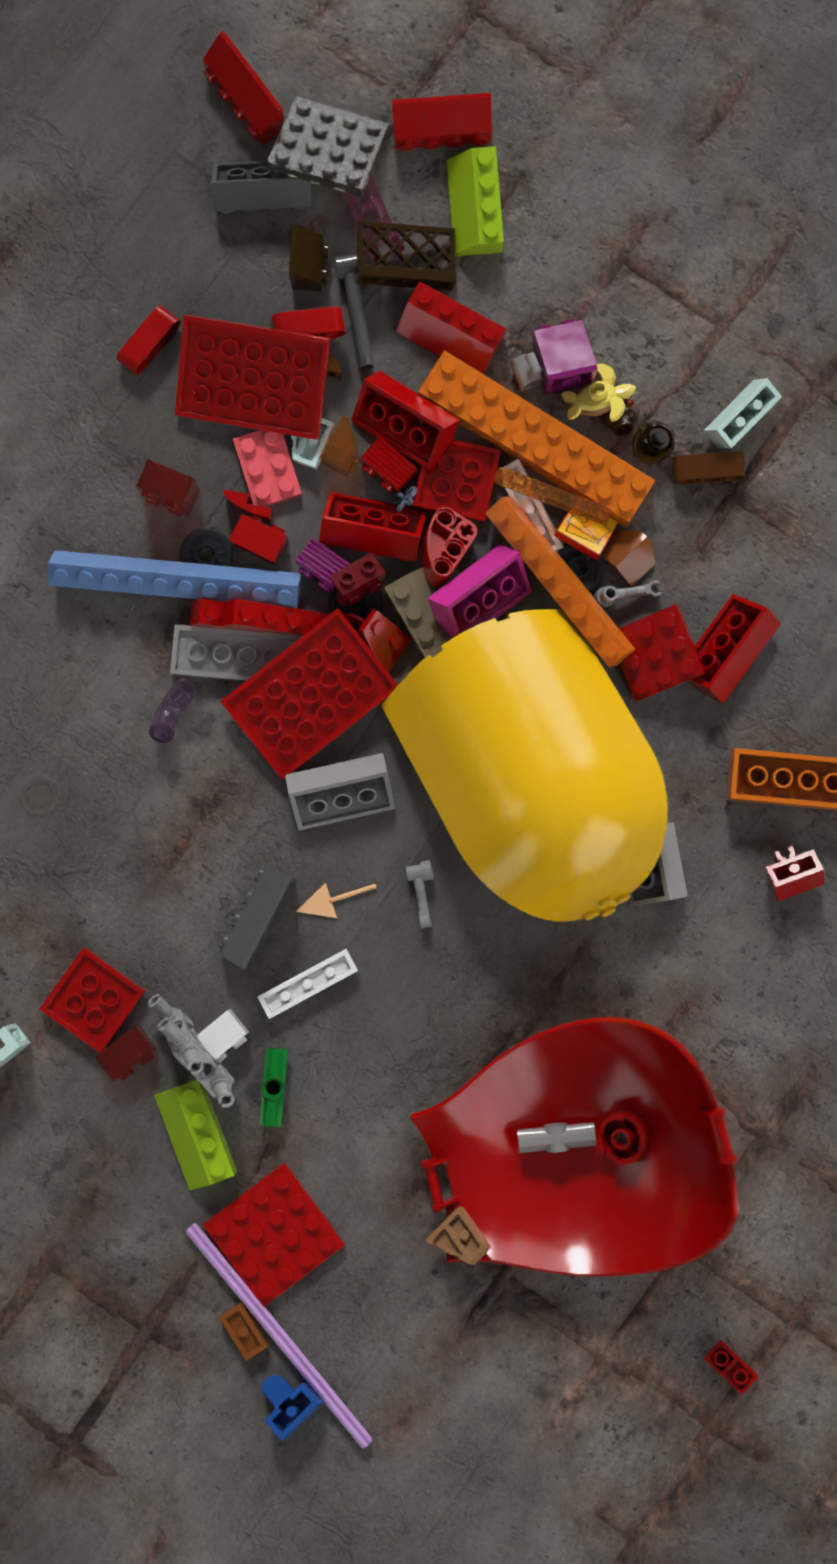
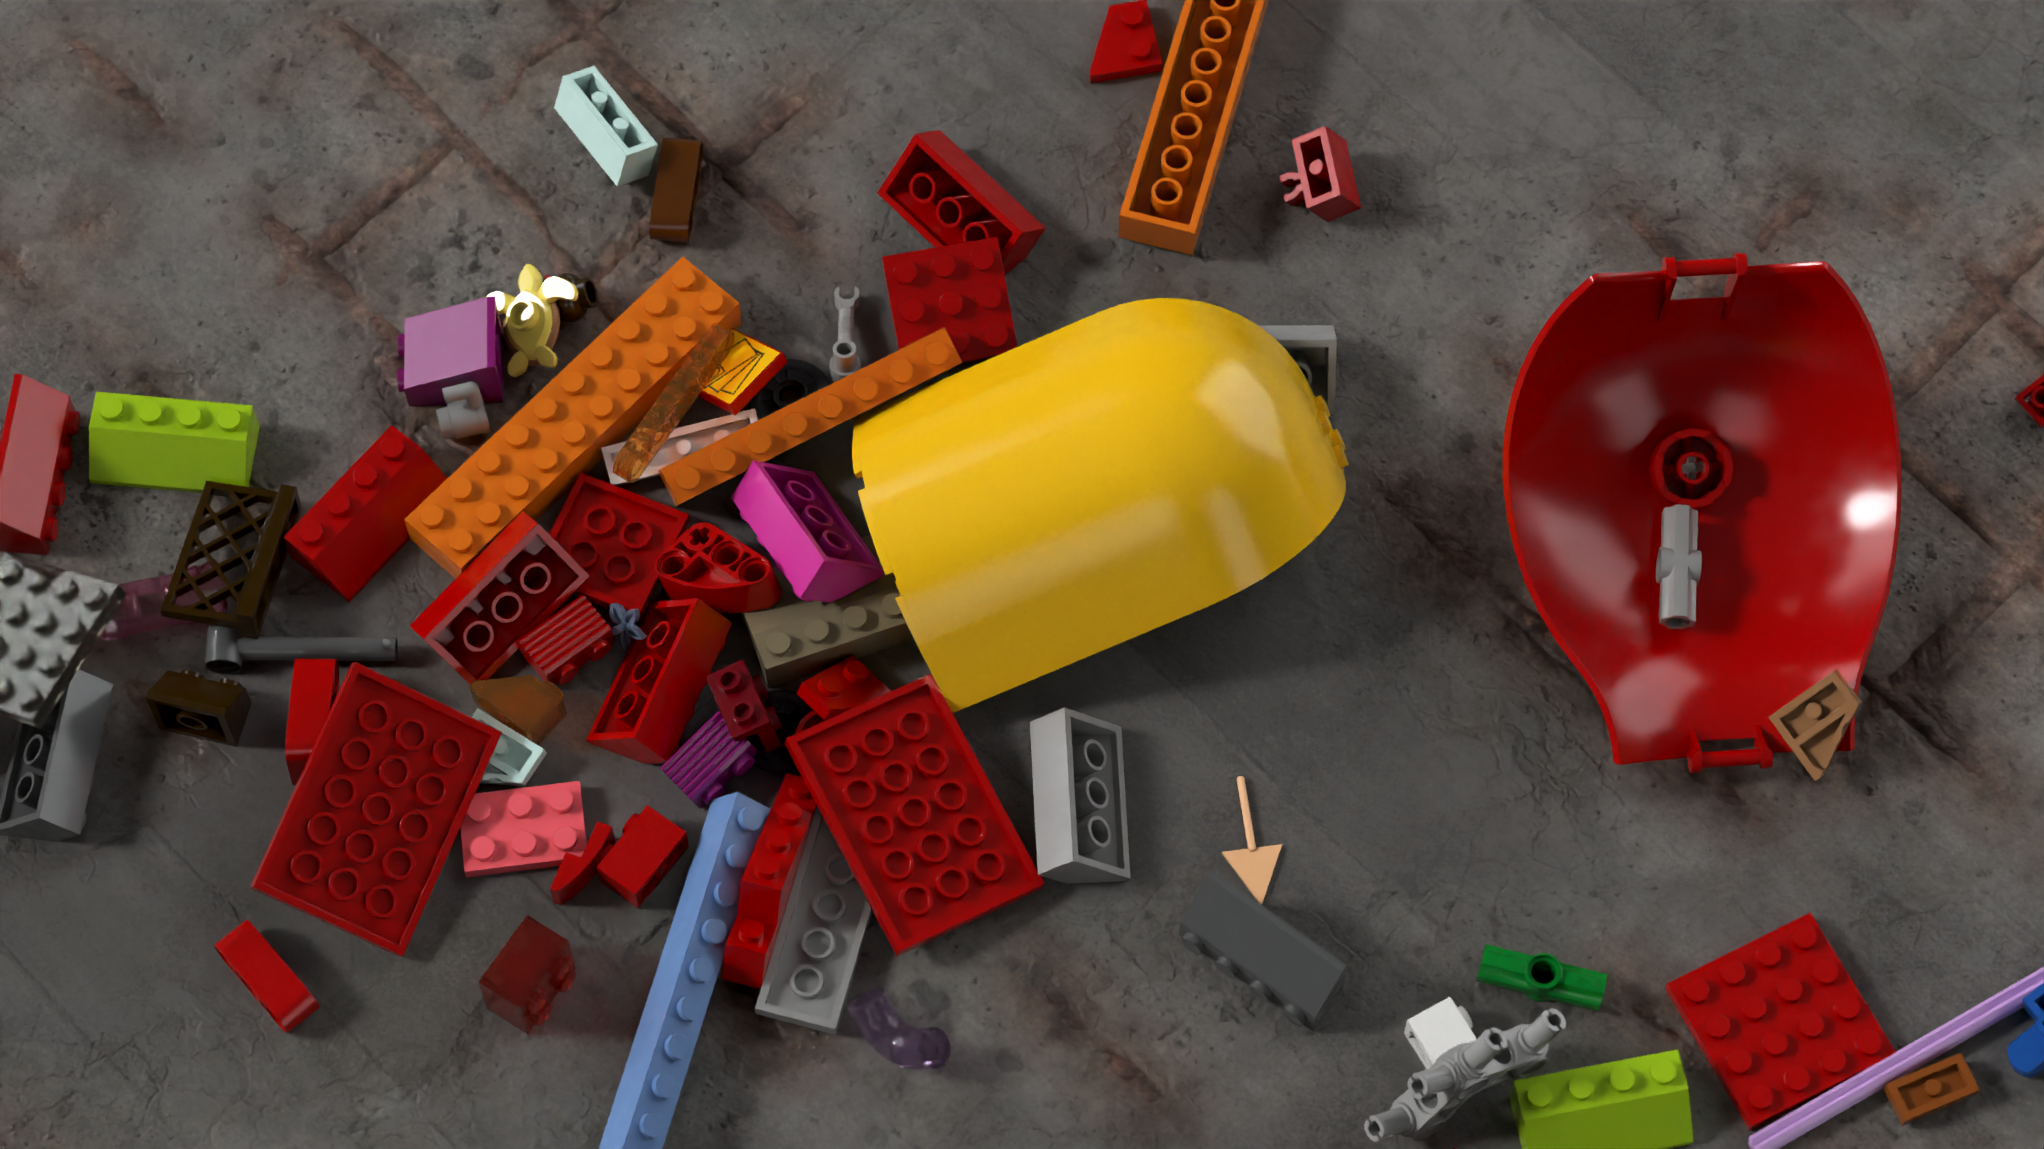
camera: 80 degrees left, 20 degrees down
(207, 538) = (622, 936): black wheel -> none
(307, 983) = (1382, 900): white plate -> none
(419, 874) = (1233, 705): light grey brick -> none
(629, 555) = (788, 321): dark orange slope -> none
(653, 442) = (620, 255): dark brown hair -> none

